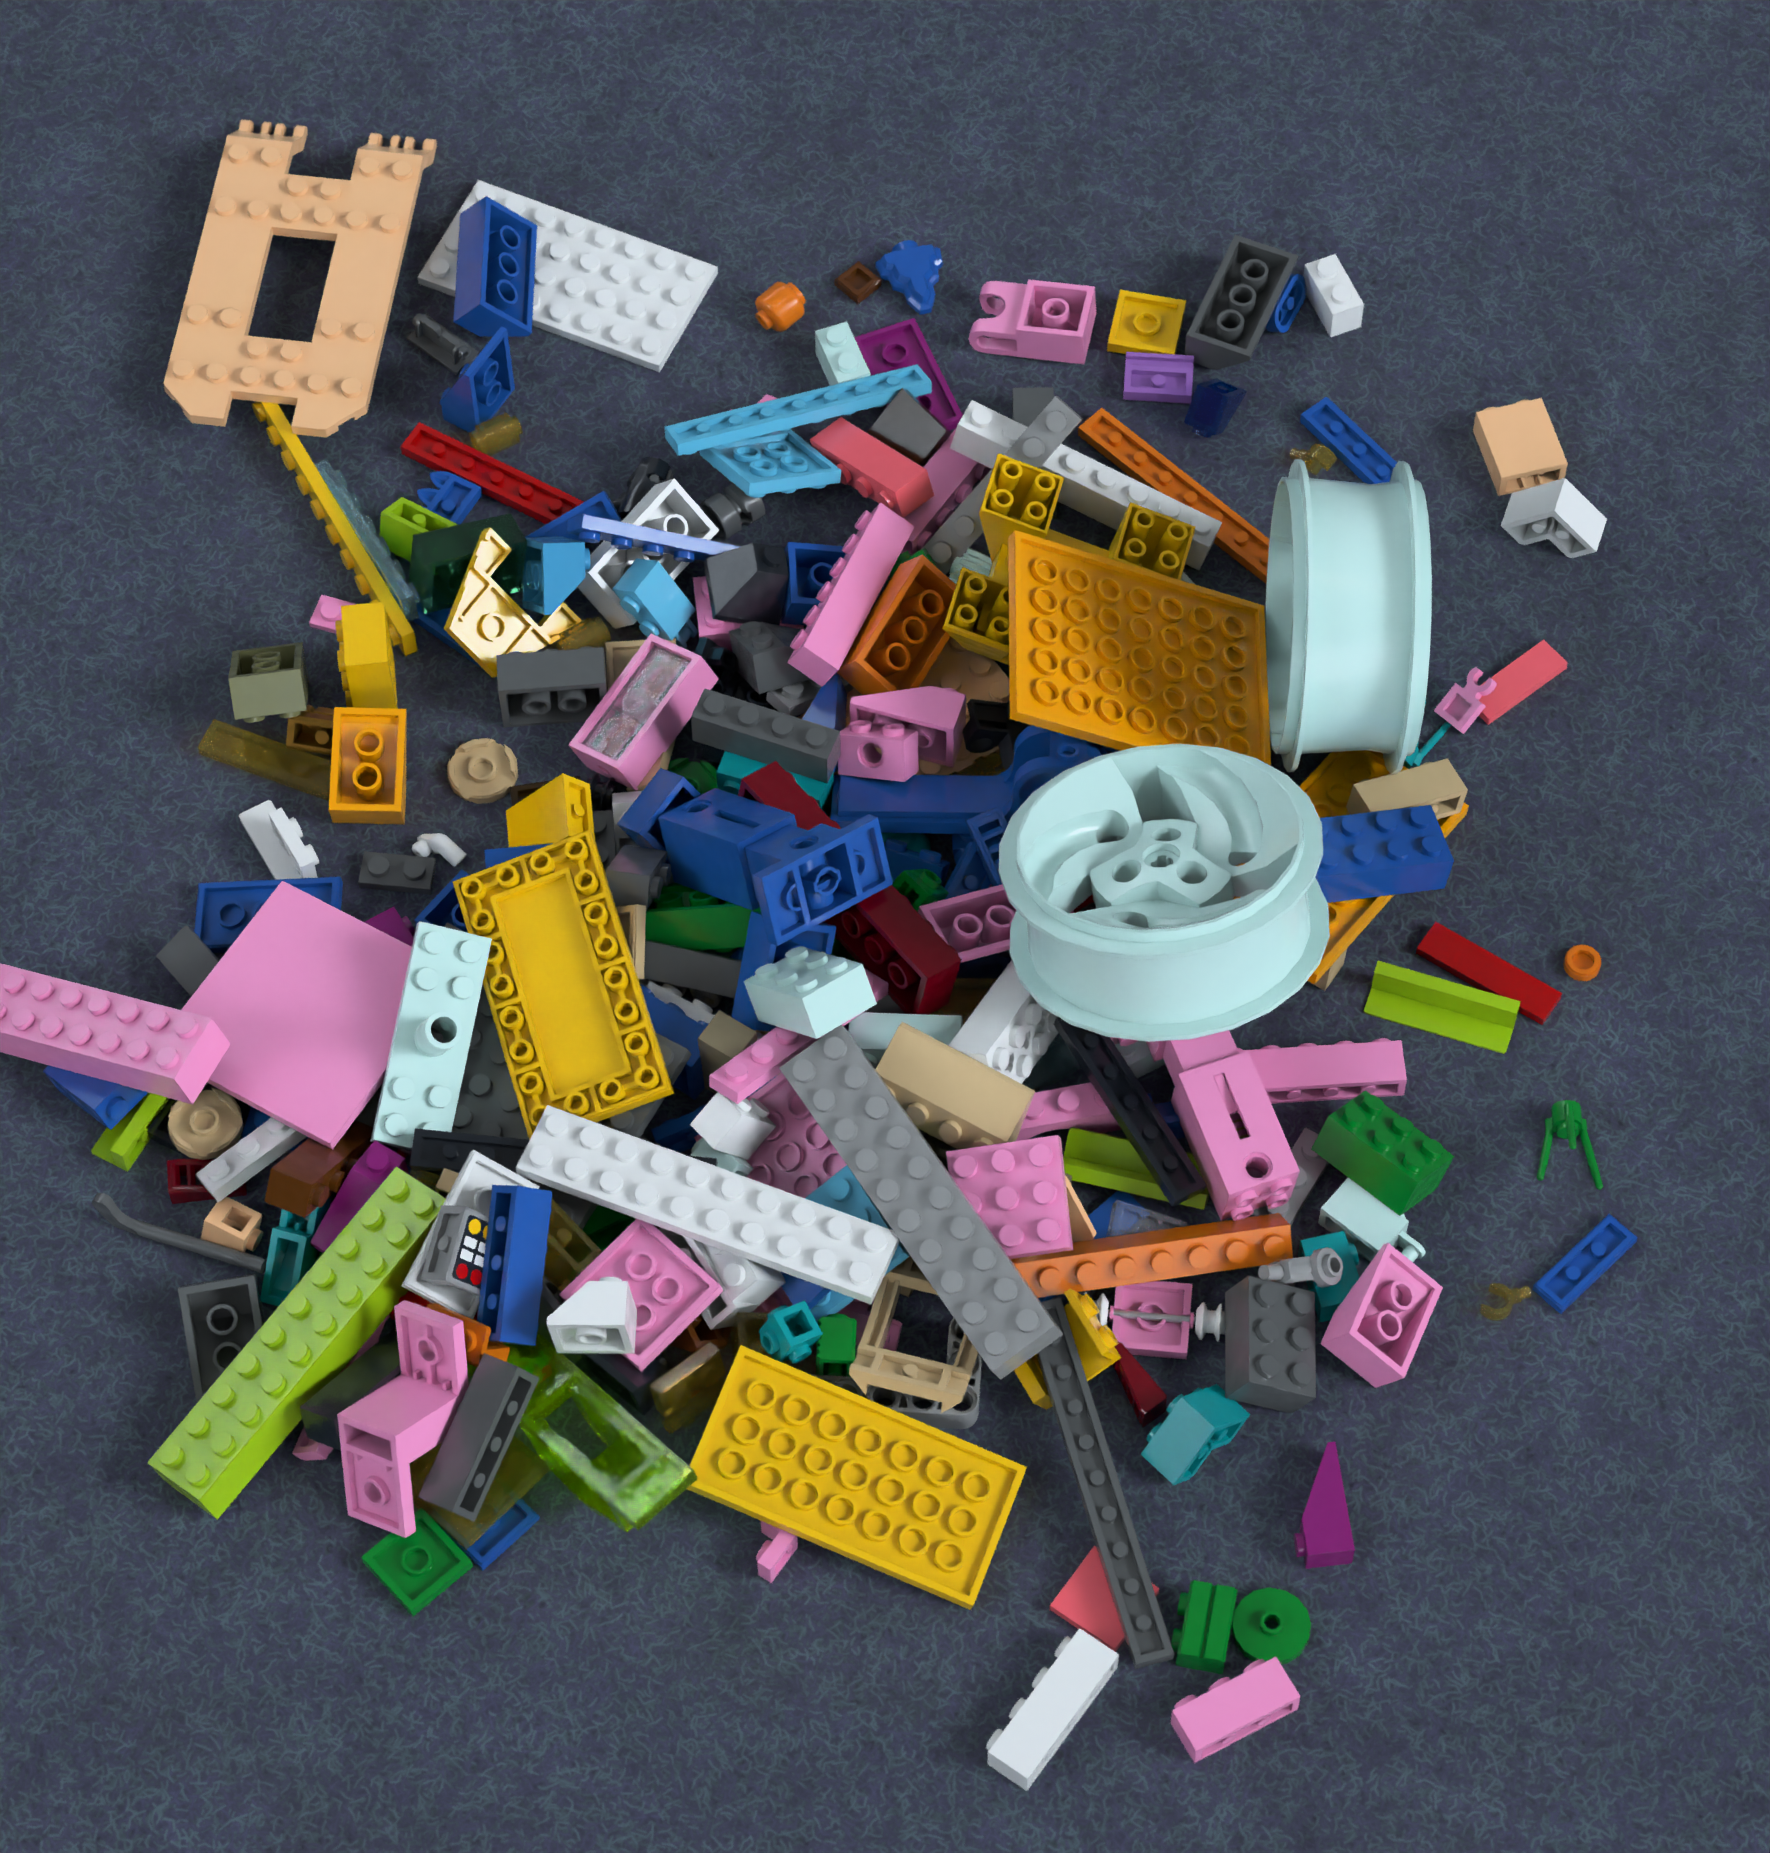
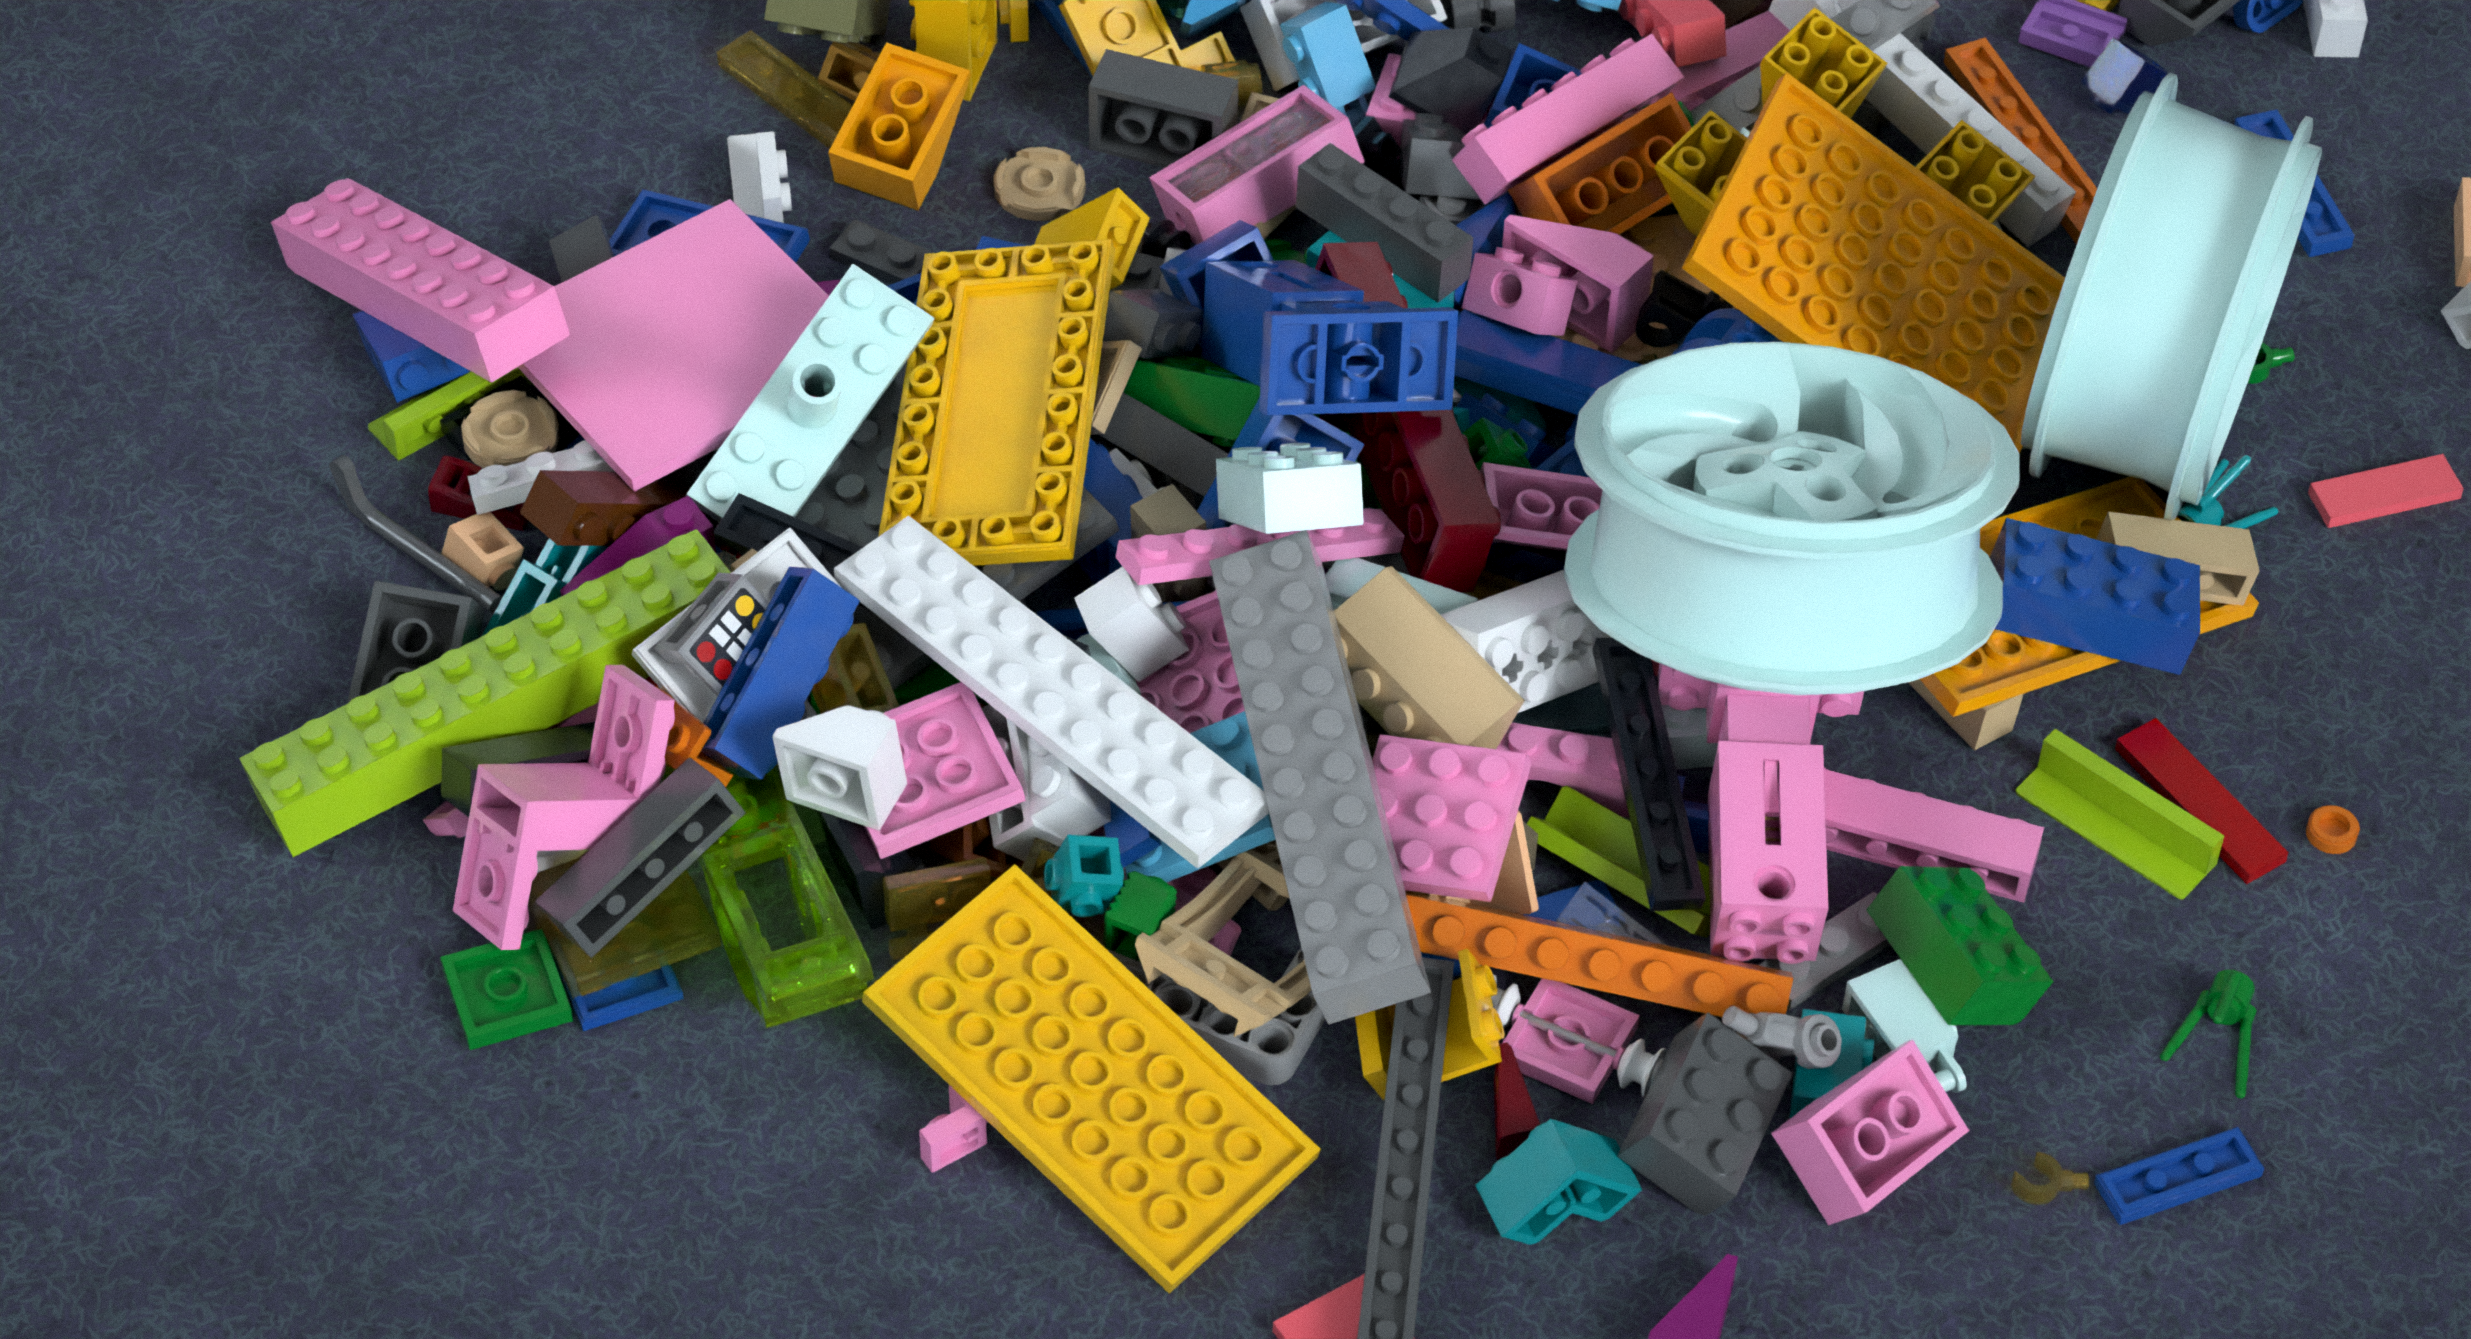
camera: 20 degrees right, 10 degrees down
(438, 844) = (939, 237): white arm -> none
(1462, 705) = (2303, 489): bright pink plate -> none

